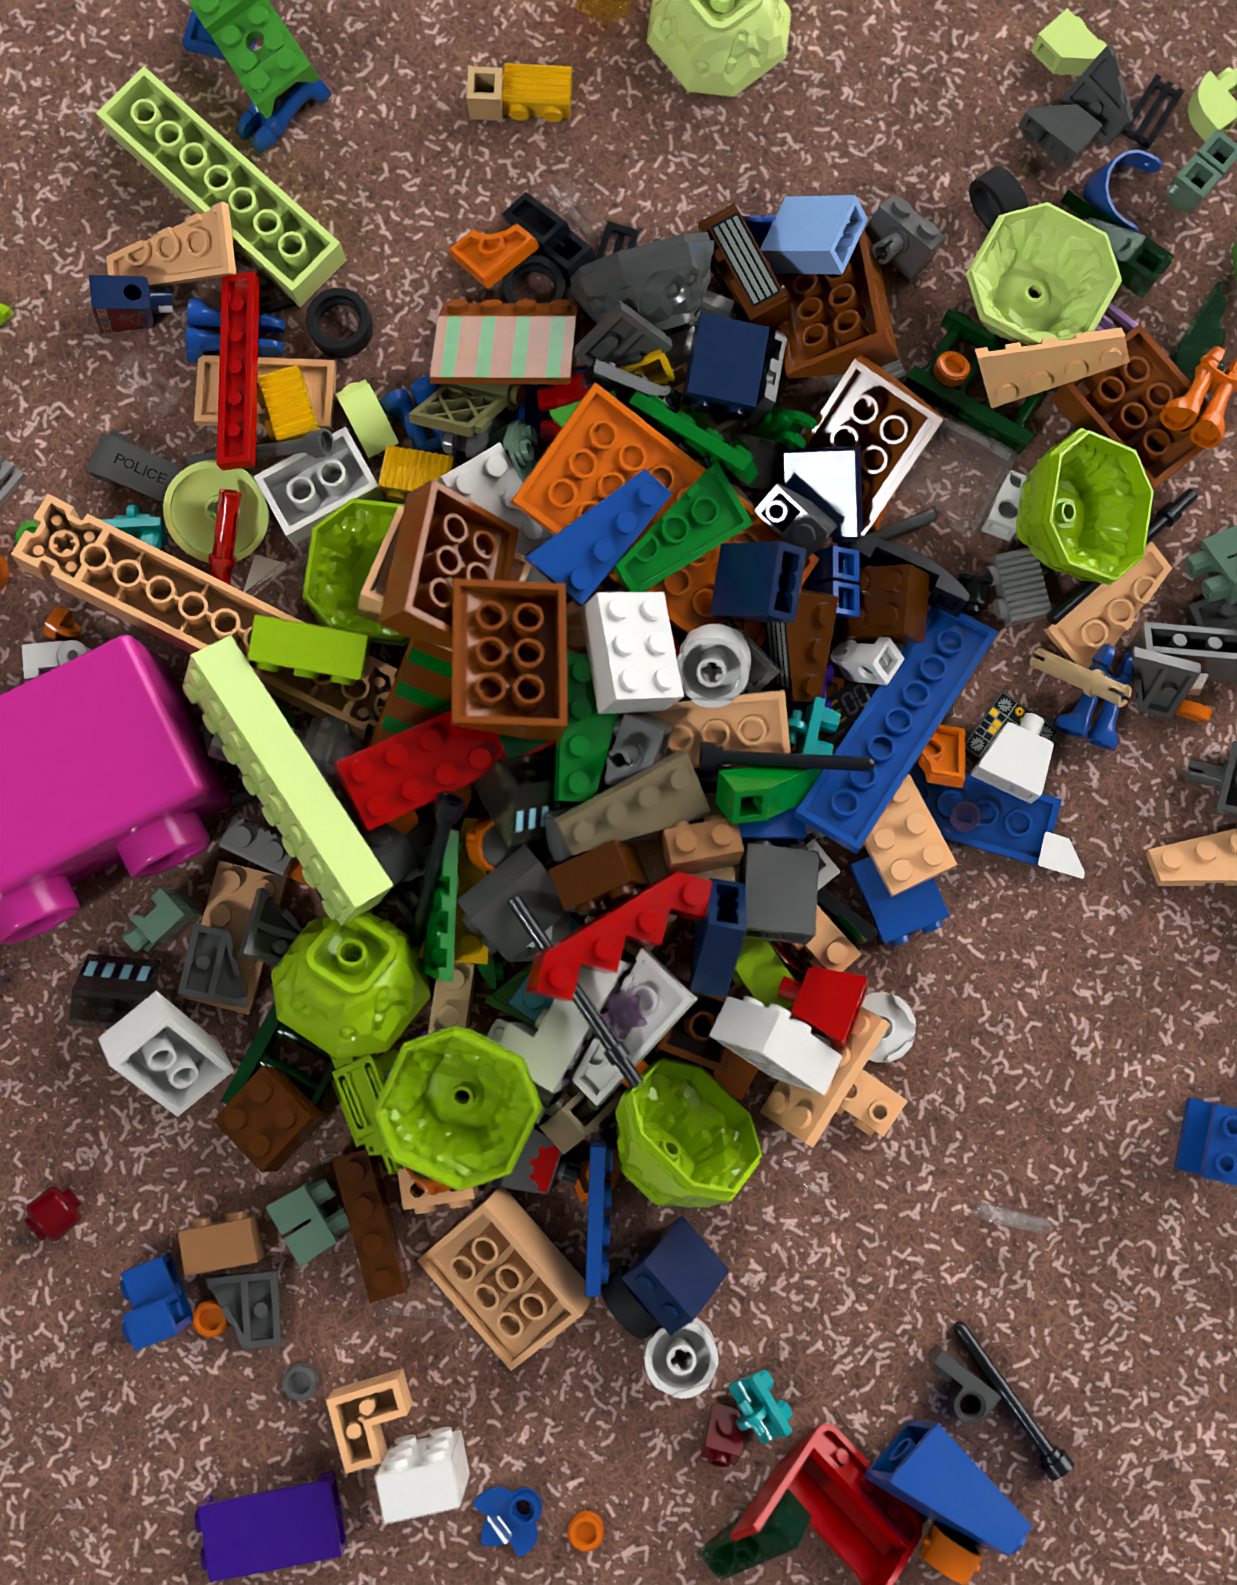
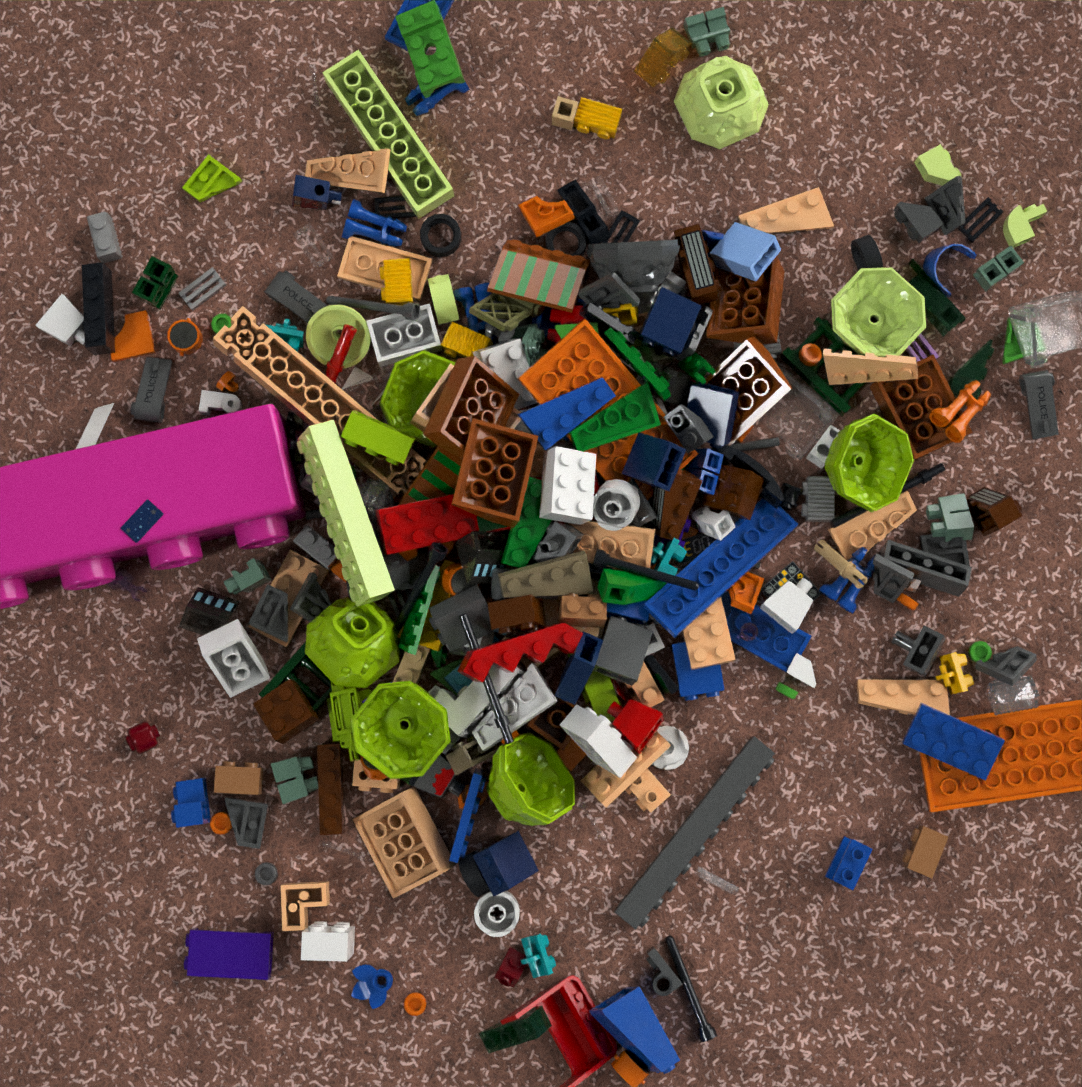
camera: 15 degrees right, 0 degrees up
(178, 662) = (295, 429): none -> black hinge
(238, 371) = (372, 254): red plate -> none
(632, 1009) = (517, 699): clear purple plate -> none
(870, 167) = (796, 213): none -> light nougat wing
(903, 237) = (800, 265): dark grey brick -> none
(957, 1151) = (694, 832): none -> dark grey brick
(1044, 893) = (786, 690): none -> bright green tile

